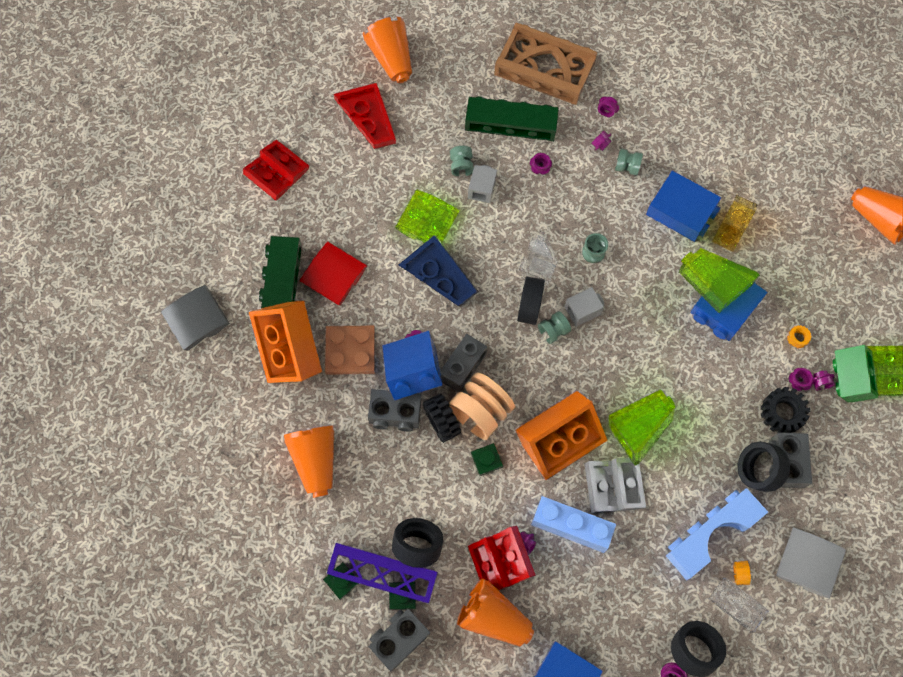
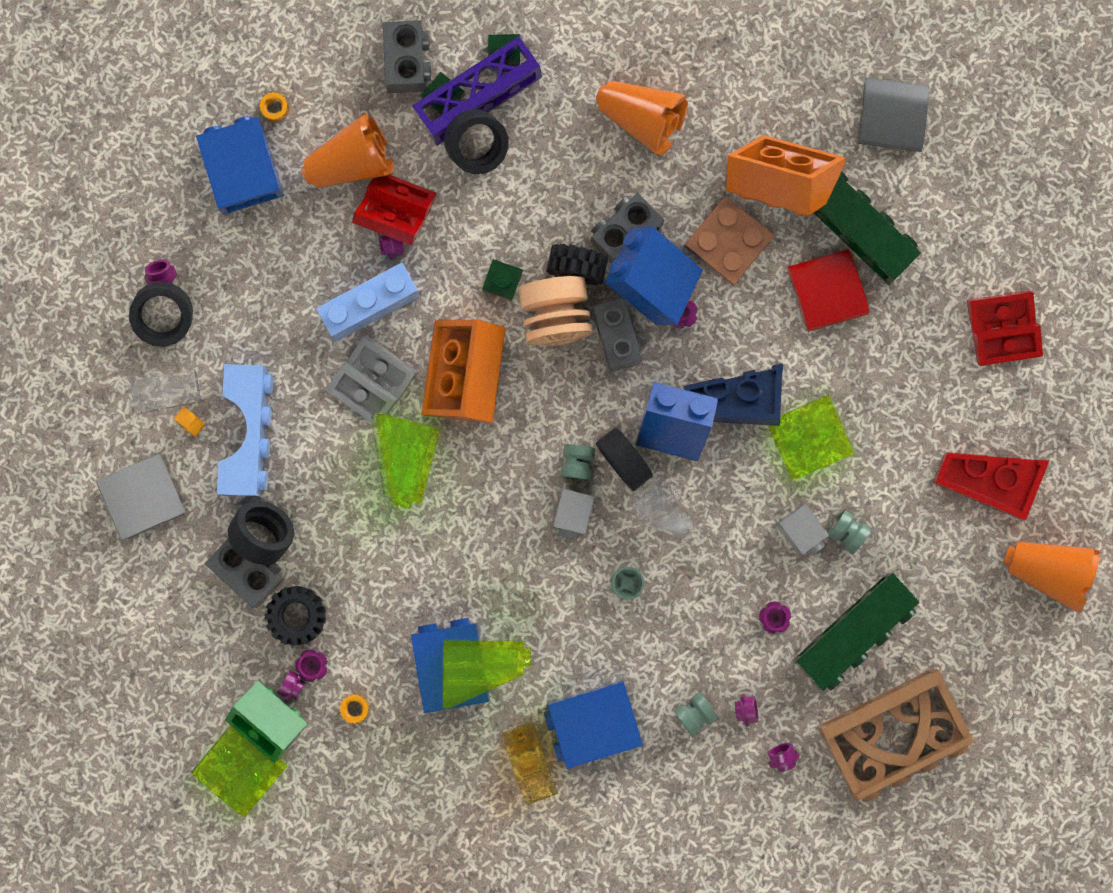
camera: 130 degrees right, 15 degrees up
(485, 285) = (676, 421): none -> blue brick

